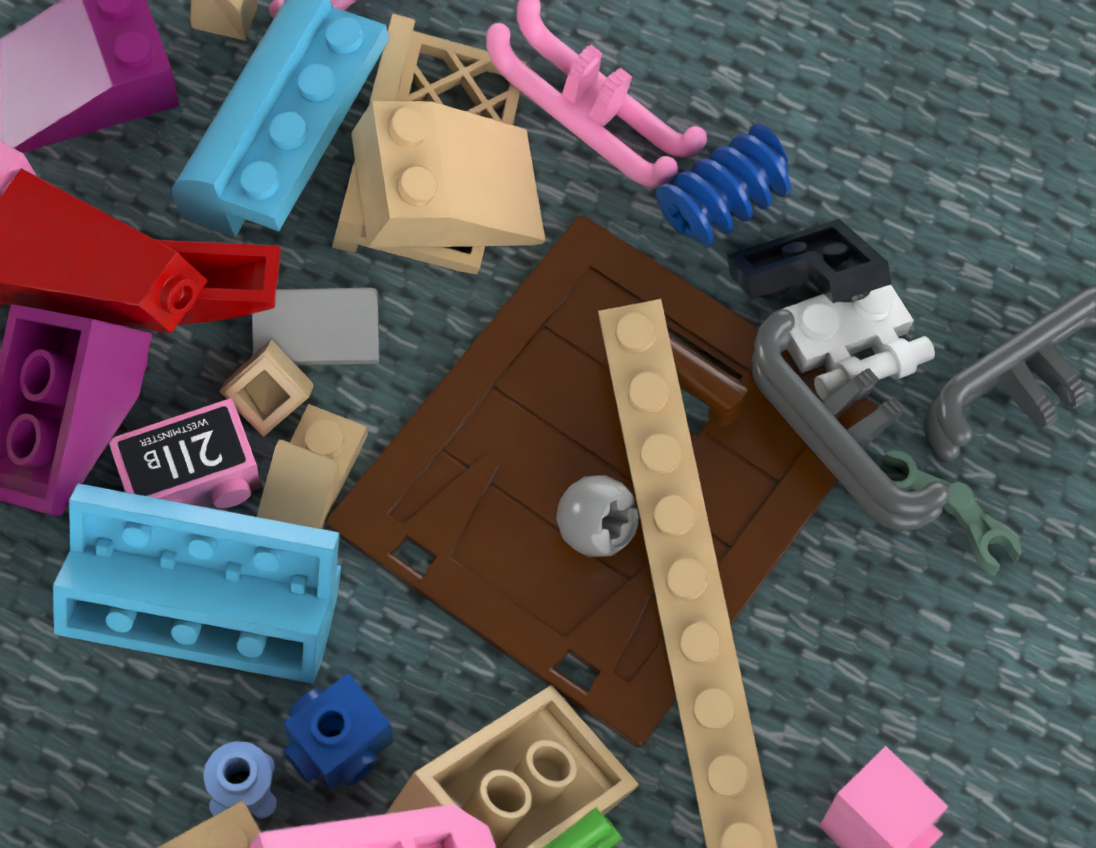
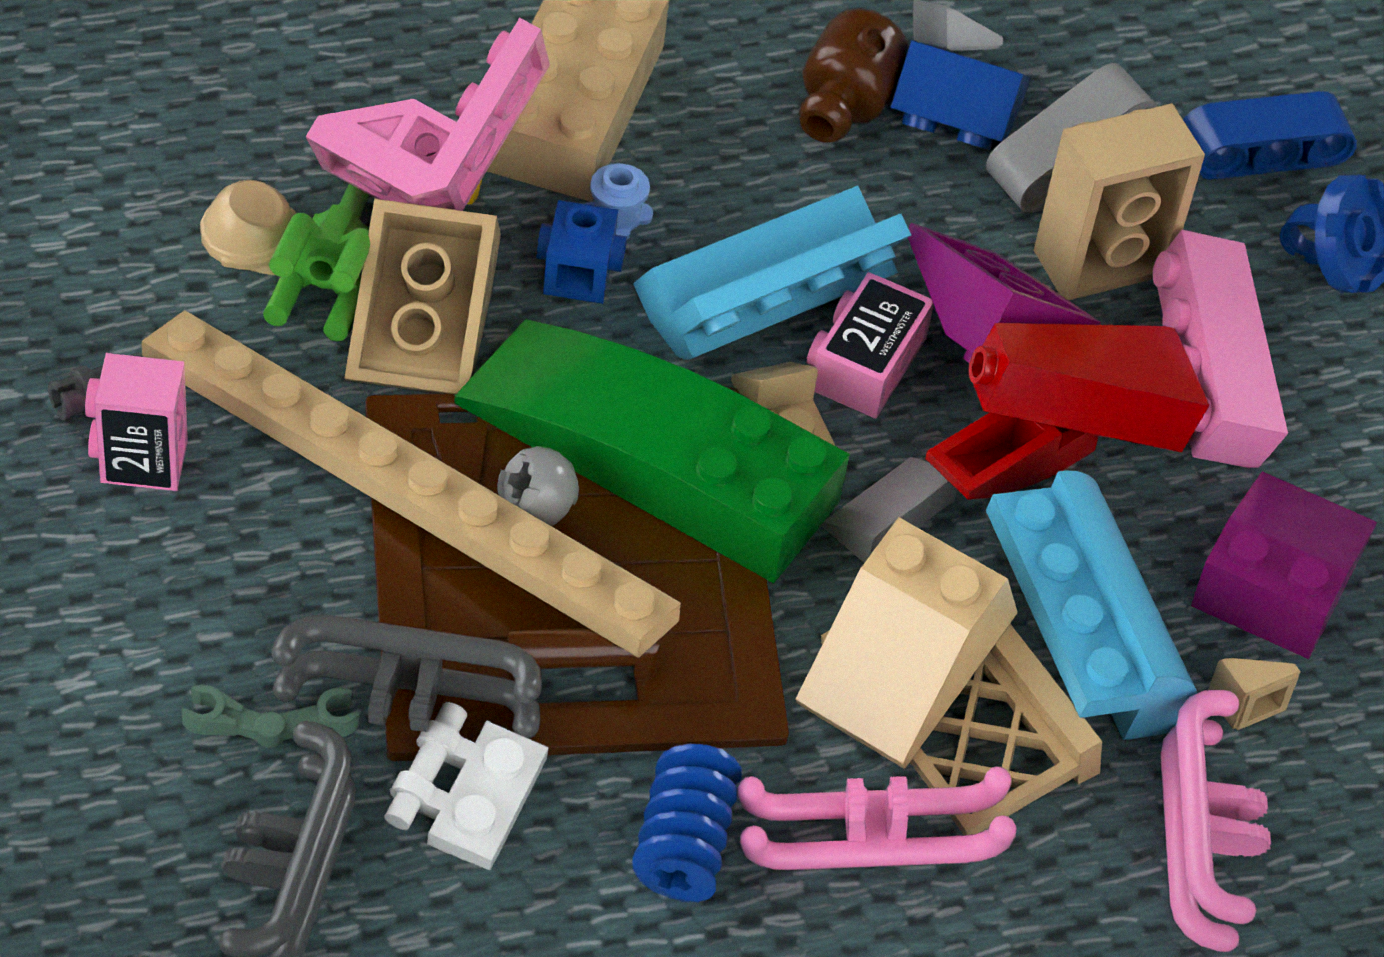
camera: 135 degrees right, 15 degrees down
(267, 388) = (878, 441): tan slope -> none
(458, 507) = (664, 441): none -> green slope
(825, 254) = (552, 819): black plate -> none

